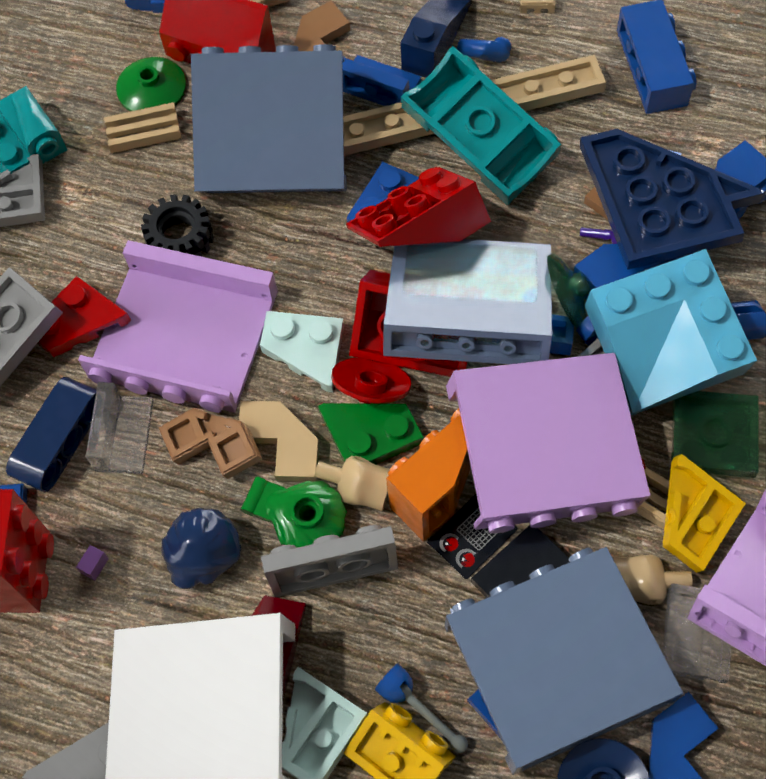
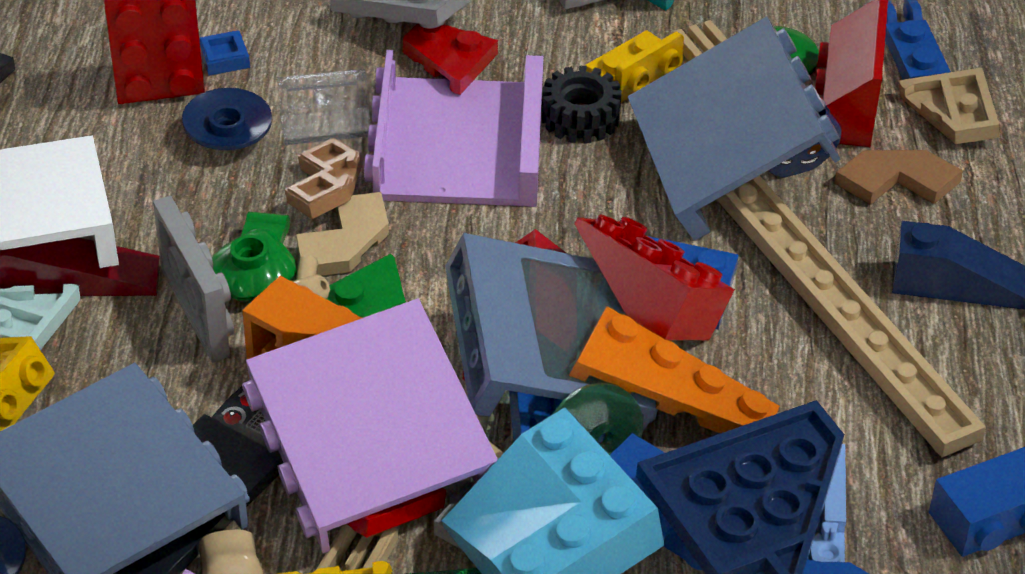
camera: 70 degrees right, 20 degrees down
(53, 435) = (293, 54): dark blue beam -> none
(92, 562) = (170, 123): medium lavender piece -> none
(103, 497) = (227, 119): none -> dark blue dish
(136, 180) = (641, 60): none -> yellow bracket
(200, 547) = (201, 185): dark blue hair -> none
(304, 343) = (466, 213): light aqua wing -> none
(370, 380) = (421, 274): red dish -> none
(376, 81) = (862, 235): blue panel -> none
(398, 687) = (69, 371): hinge -> none
(482, 125) = (808, 316): teal piece -> none
(488, 50) = (949, 323): blue arm -> none
(521, 234) = (660, 370): none -> orange wing

